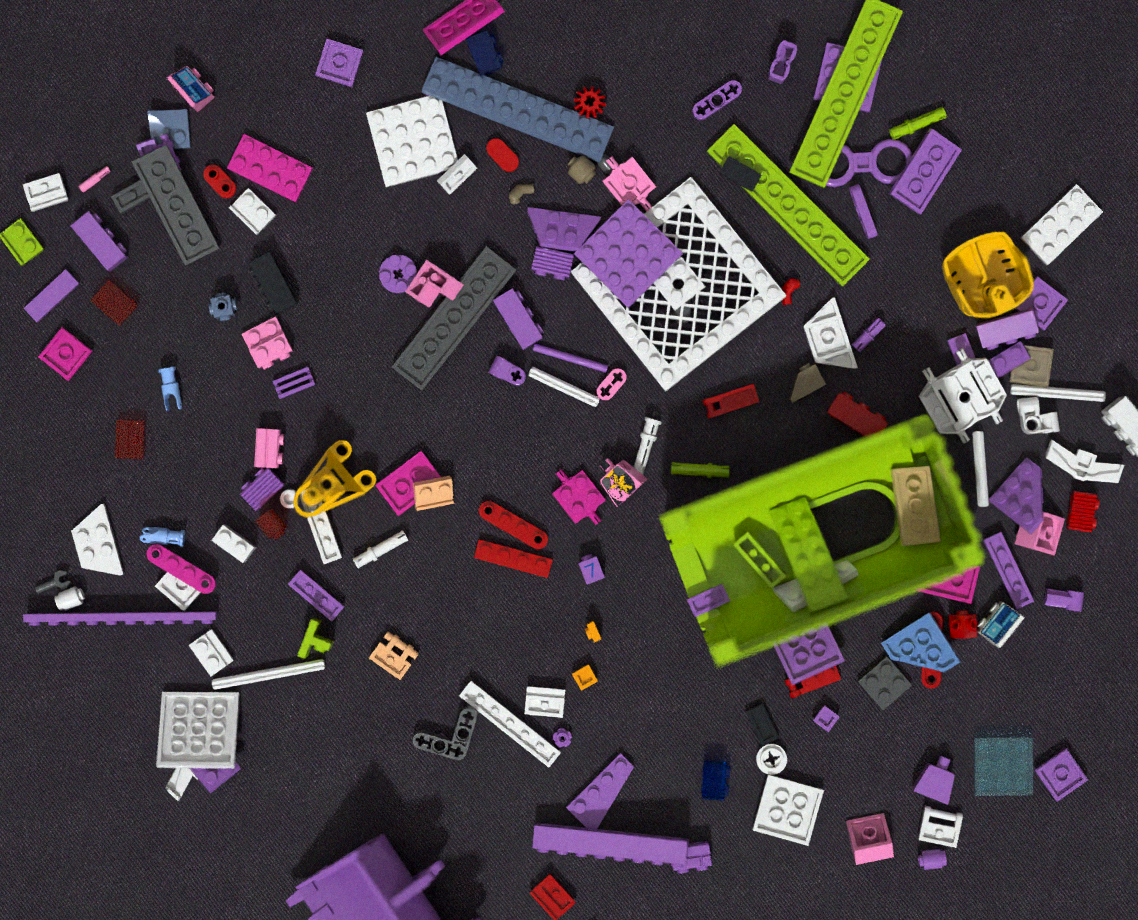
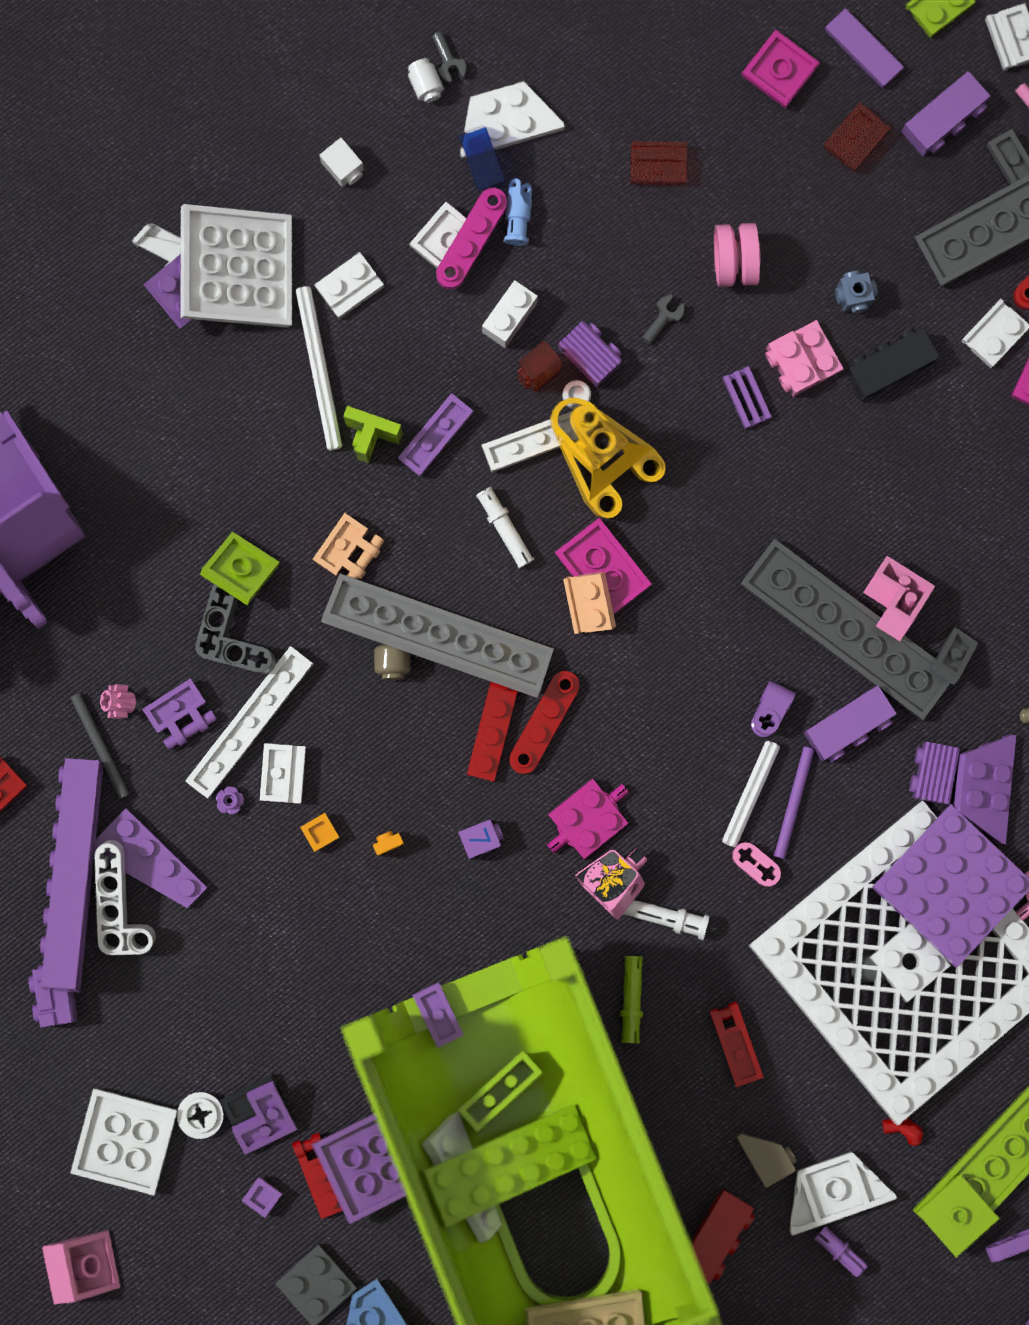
camera: 85 degrees right, 5 degrees down
(112, 617) = (398, 165): medium lavender plate -> none
(125, 561) = (480, 157): none -> clear blue piece
(126, 656) = (342, 163): none -> white brick
(170, 386) = (736, 216): light blue piece -> none
(196, 387) = (736, 256): none -> bright pink wheel
(238, 438) = (664, 317): none -> dark grey bar
(268, 448) = (650, 361): bright pink brick -> none
(387, 276) = (926, 541): medium lavender plate -> none
(405, 729) = (239, 568): none -> lime plate
(453, 596) = (437, 635): none -> light grey plate
(469, 627) = (391, 662): none -> dark tan head
(473, 247) = (954, 655): none -> dark grey plate
(494, 812) = (117, 701): none -> bright pink gear
(498, 774) = (174, 707): none -> medium lavender plate
(524, 824) = (100, 746): none -> dark grey piece
(626, 814) = (117, 898): none -> white beam
(714, 780) = (168, 1030): clear blue brick -> none
(776, 712) = (270, 1122): none -> medium lavender plate
(846, 257) = (957, 1215): none -> lime plate

